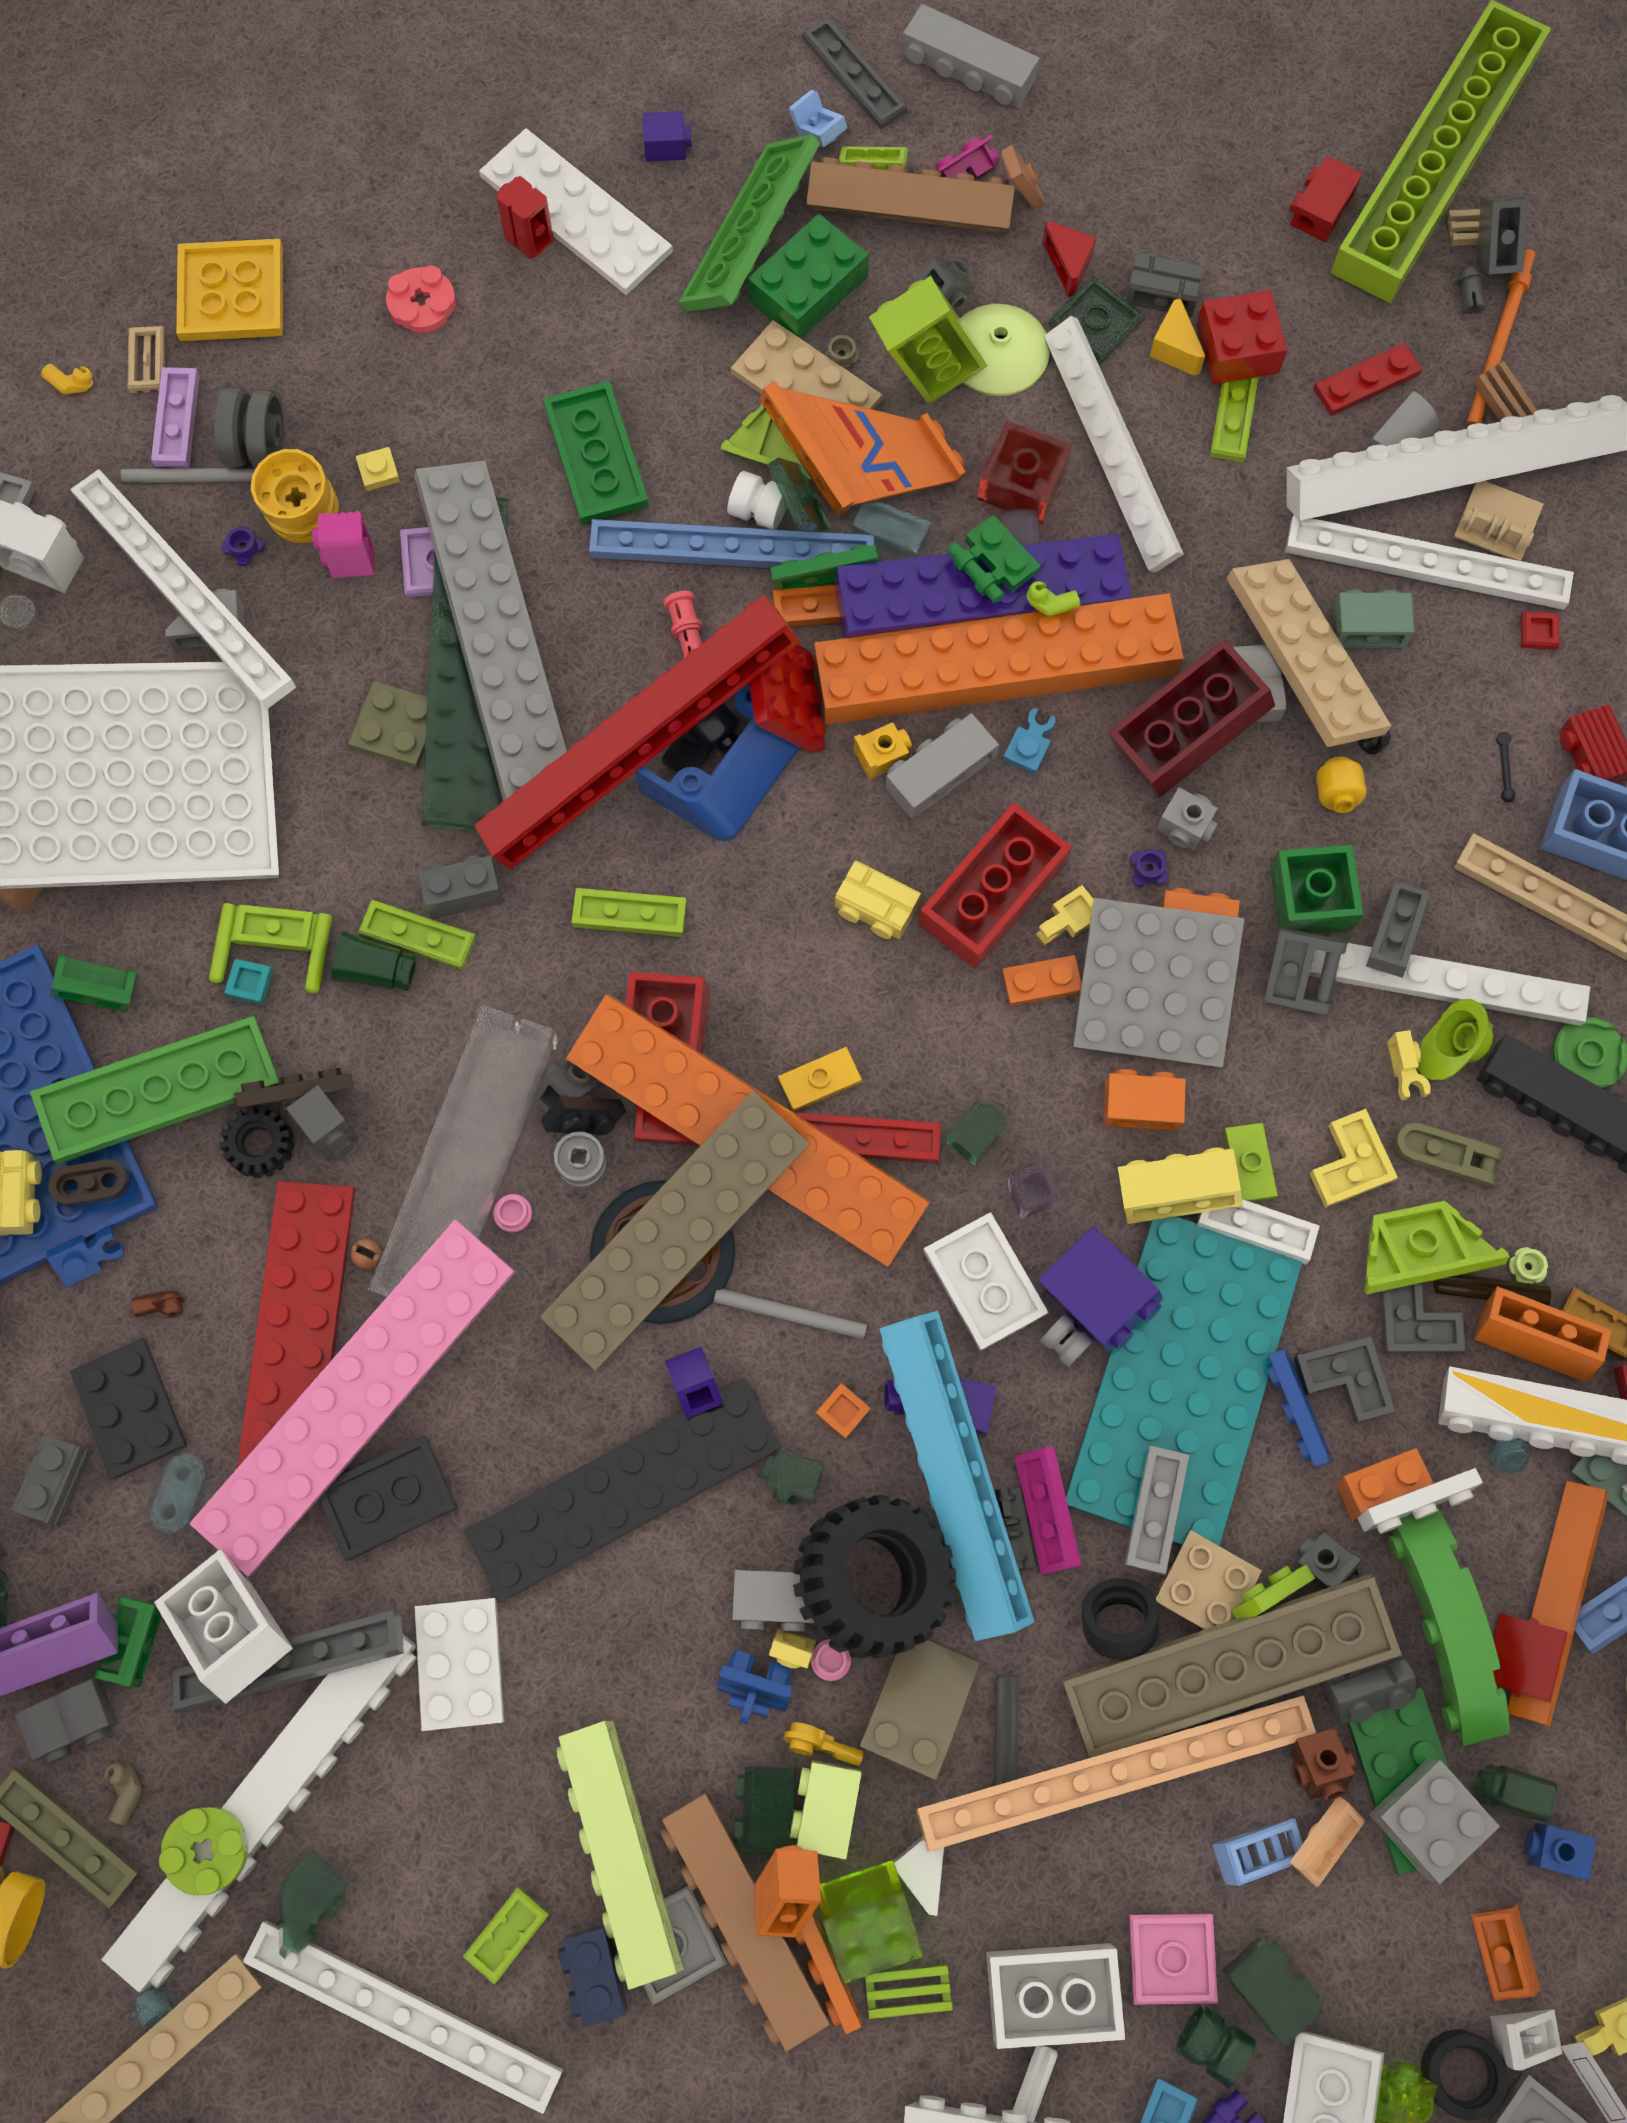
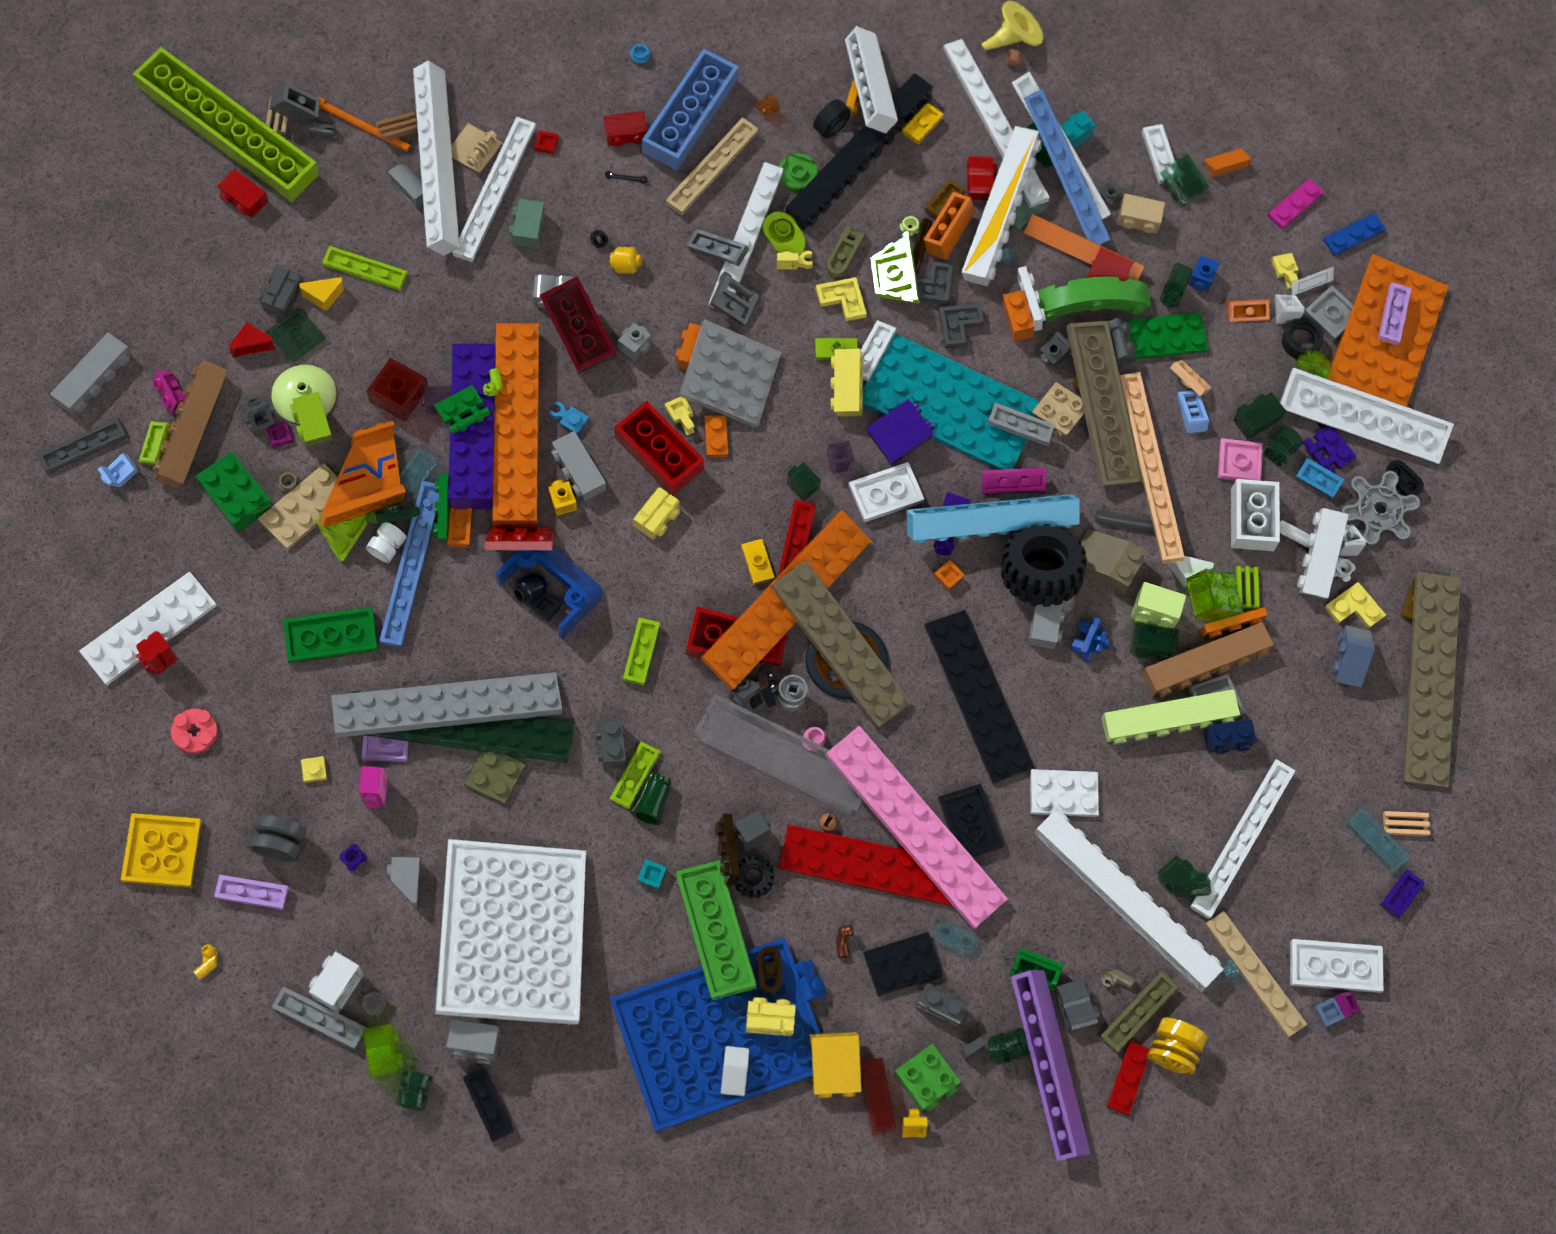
camera: 90 degrees left, 5 degrees down
(92, 984) = (641, 964): green hinge -> none
(146, 384) = (221, 912): tan tile -> none
(184, 589) = (385, 887): white plate -> none
(187, 475) = (294, 889): light grey bar -> none
(222, 1626) = (1036, 906): white brick -> none
(228, 1844) = (1154, 913): lime plate -> none
(272, 929) = (620, 858): lime plate -> none
(282, 483) = (320, 808): yellow wheel -> none
(311, 1657) = (1058, 877): dark grey plate -> none
(506, 1935) = (1206, 781): lime plate -> none
(637, 732) = (542, 620): red brick -> none
(665, 136) = (107, 564): dark purple brick -> none
(685, 623) = (501, 593): coral pin -> none
(694, 1382) = (925, 647): dark purple brick -> none
(749, 224) = (188, 520): bright green plate -> none
(787, 1892) = (1200, 626): orange brick -> none
(790, 1313) = (891, 595): light grey bar -> none
(792, 1477) = (982, 604): clear green brick -> none
(792, 1649) = (1073, 617): light yellow plate -> none
(807, 1738) = (1119, 617): yellow plate -> none
(829, 1663) = (1080, 602): bright pink plate -> none
(1023, 176) = (193, 354): nougat plate -> none
(1073, 1346) = (925, 455): light grey wheel -> none
(1113, 445) = (384, 340): white plate -> none
(1120, 1592) = (1064, 442): black tyre -> none
(1144, 1100) = (796, 394): orange brick -> none
(1154, 858) = (657, 363): dark purple plate -> none
(1241, 337) = (333, 254): red brick -> none
(1282, 1585) = (1069, 376): lime plate -> none
(1298, 1408) = (973, 349): blue plate -> none
(1308, 652) = (543, 259): tan plate -> none
(1316, 889) = (688, 284): green brick -> none
(1322, 1765) = (1155, 371): copper brick -> none
(1367, 379) = (368, 196): red plate -> none
(1434, 1820) = (1186, 324): light grey brick -> none

